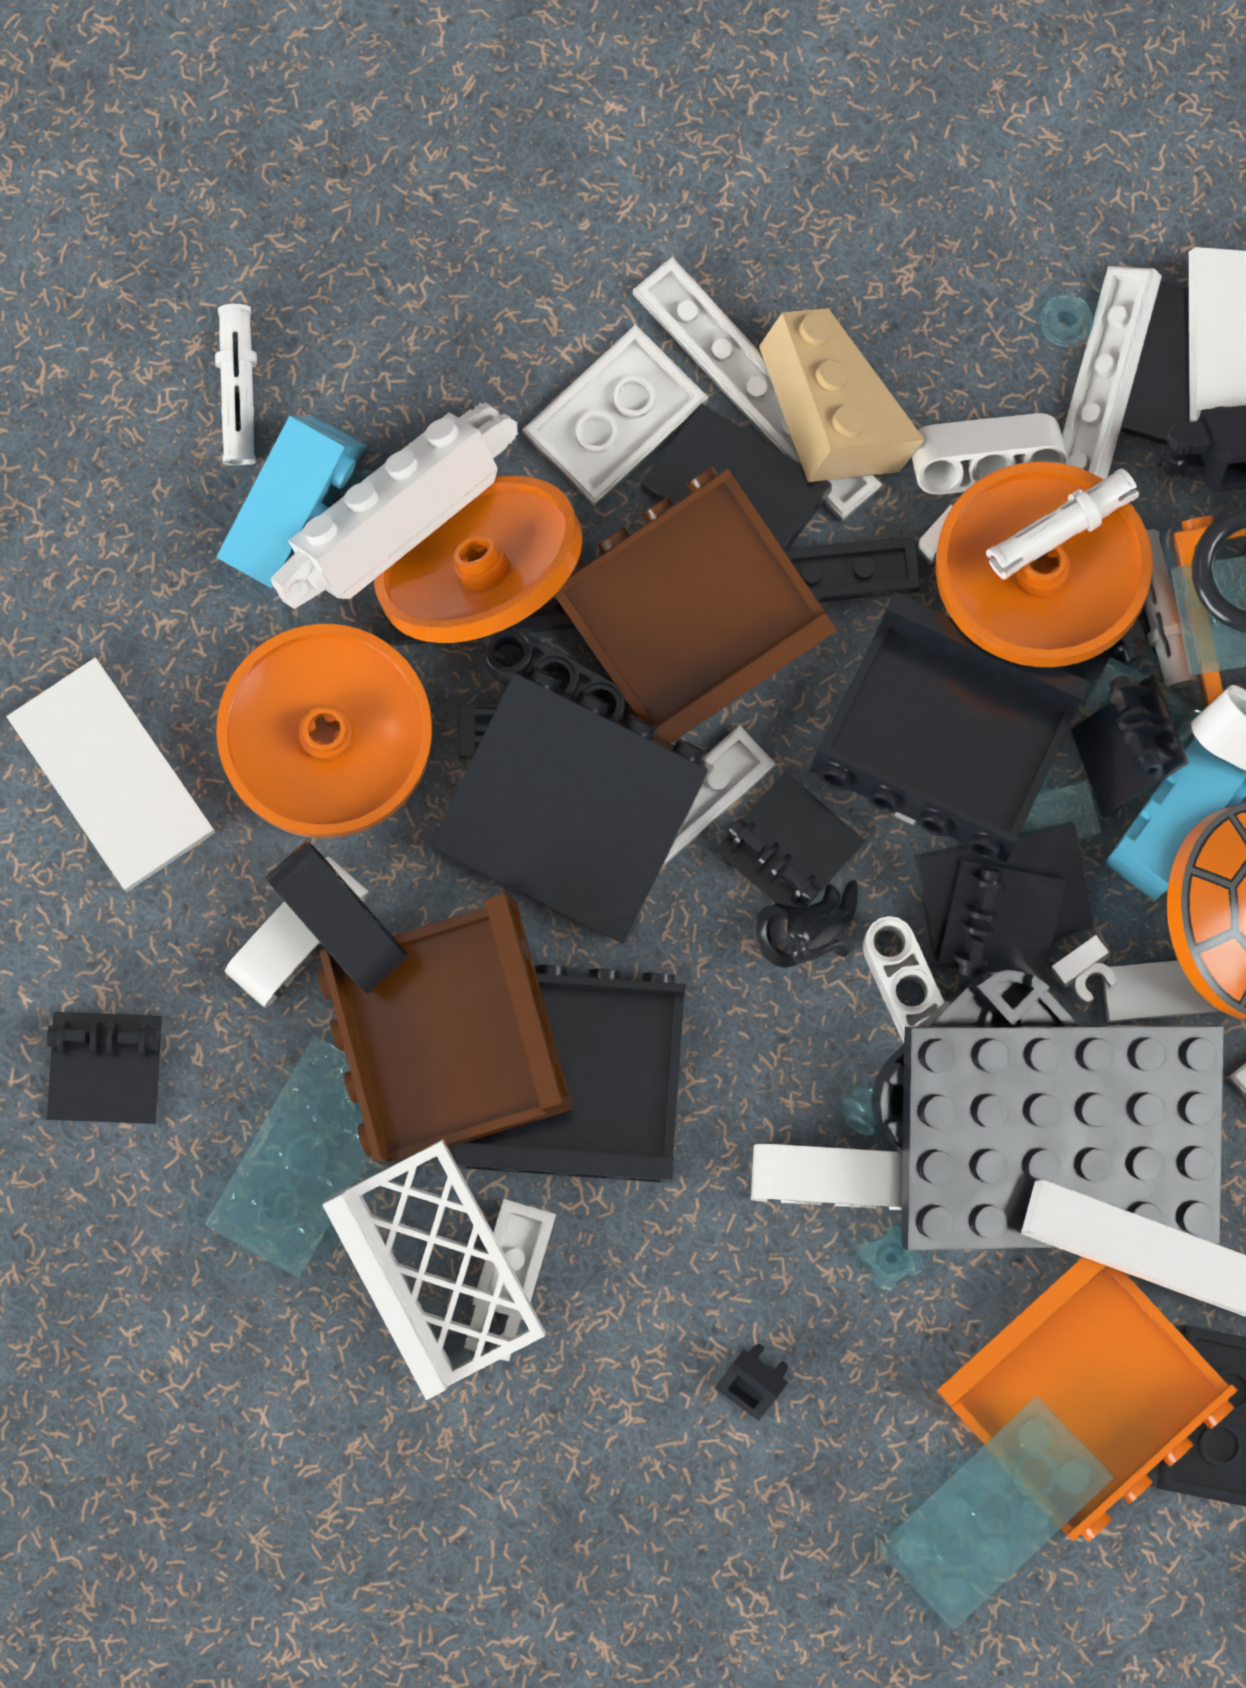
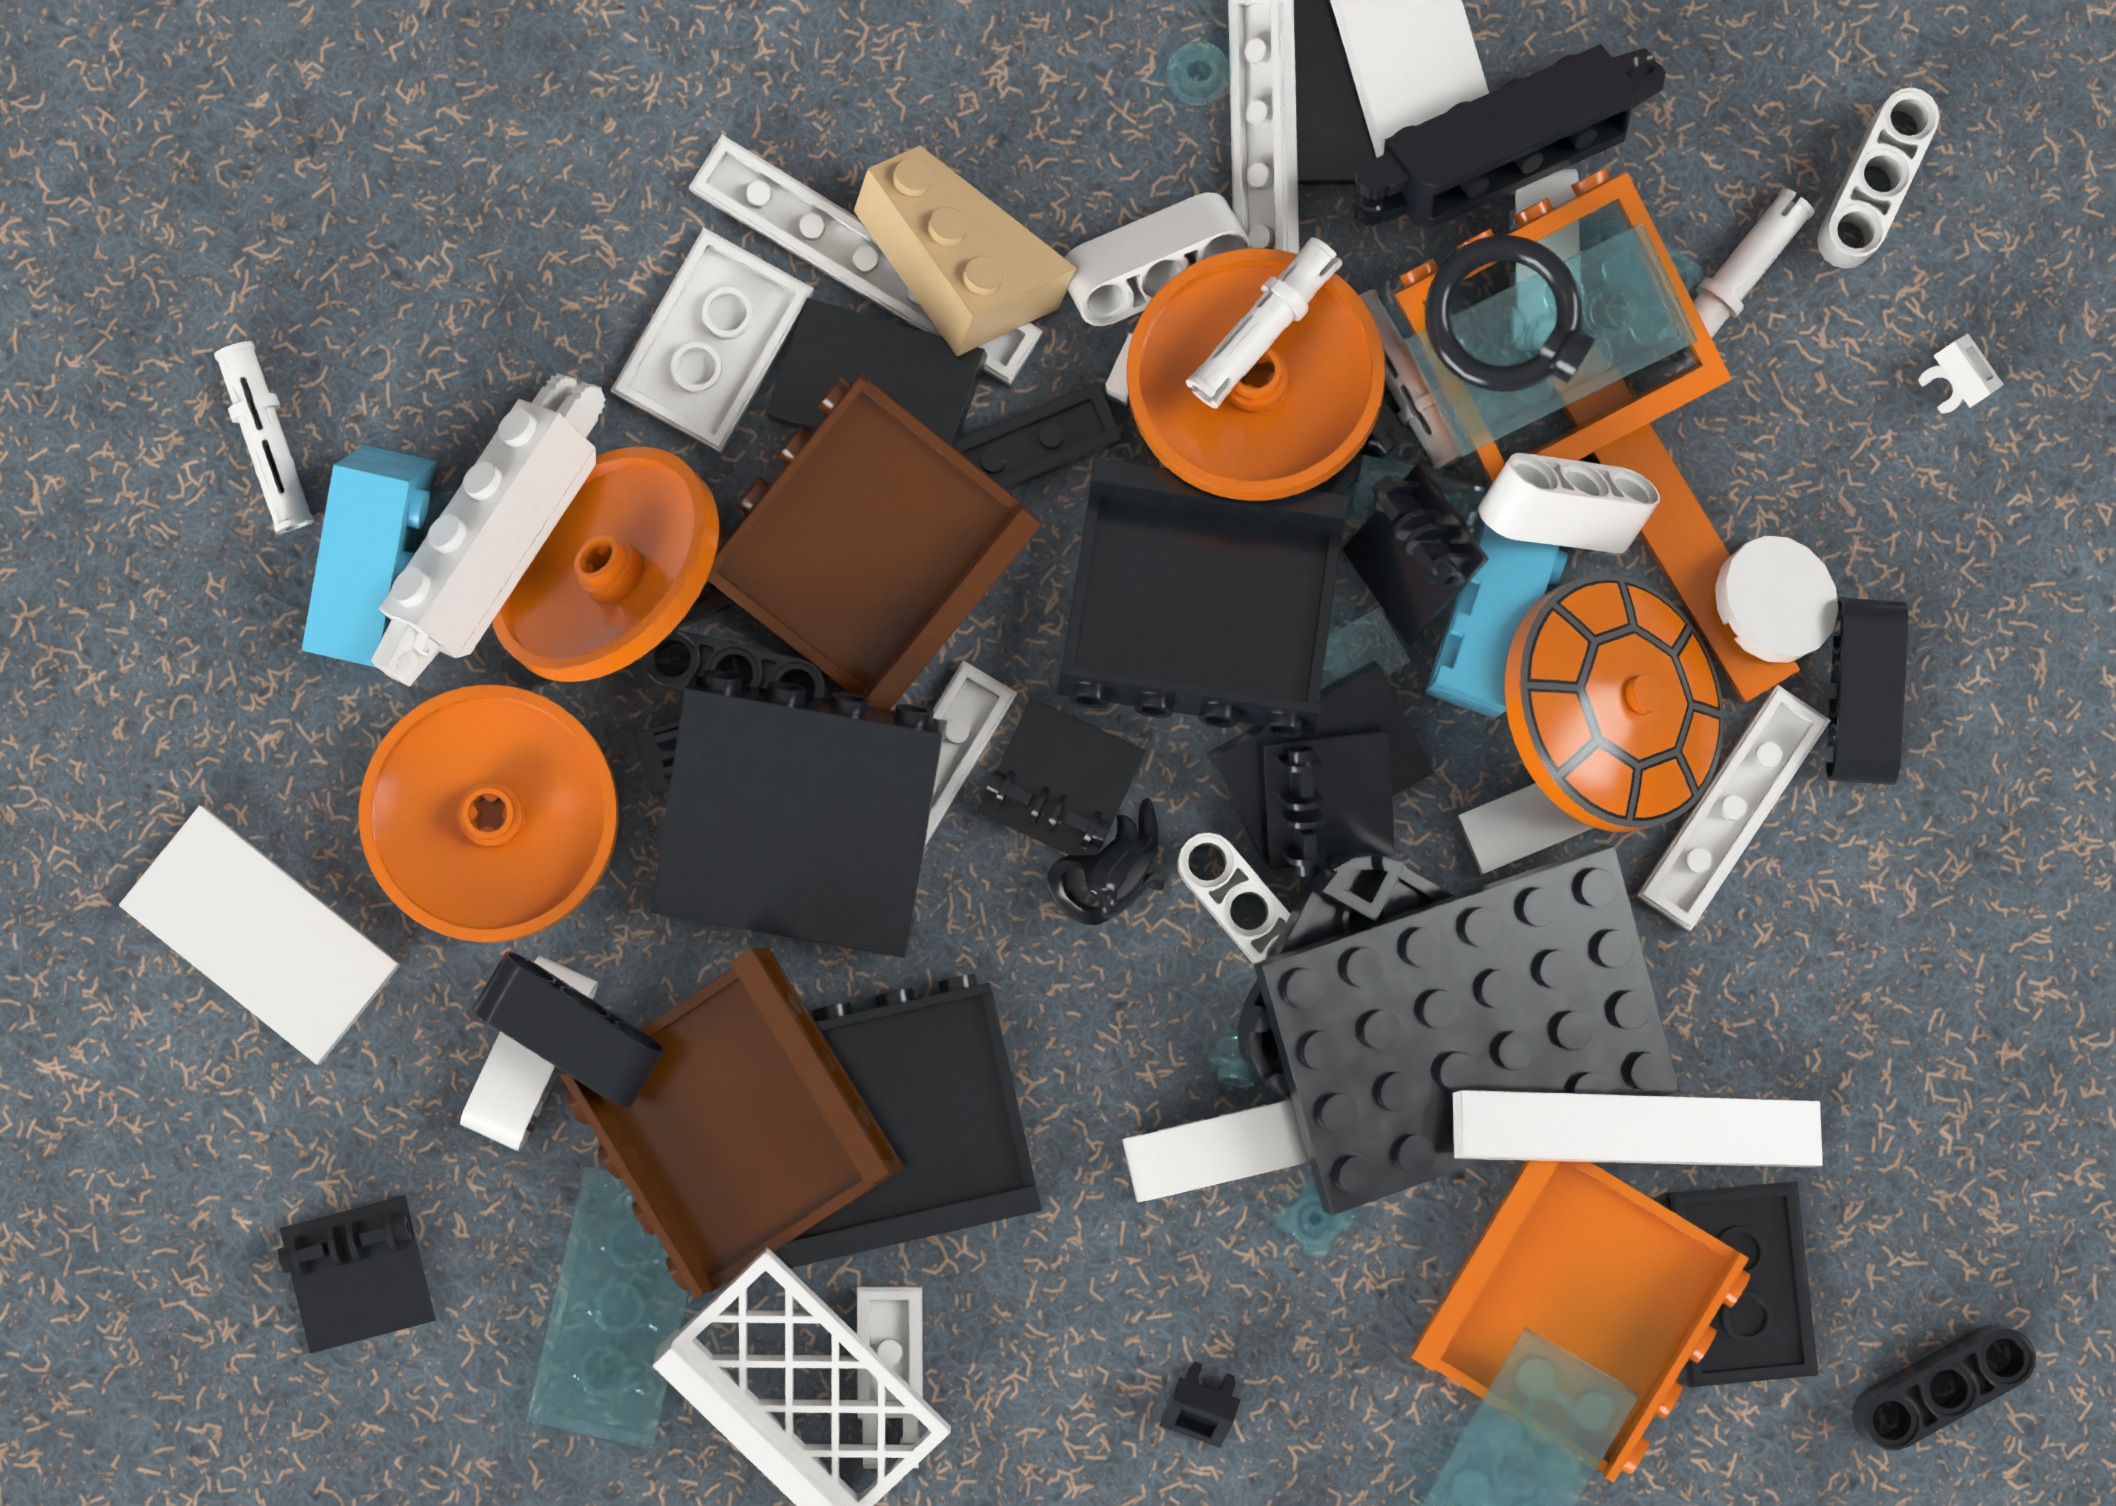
camera: 15 degrees left, 5 degrees up
(1081, 965) = (1434, 820): white tile -> none

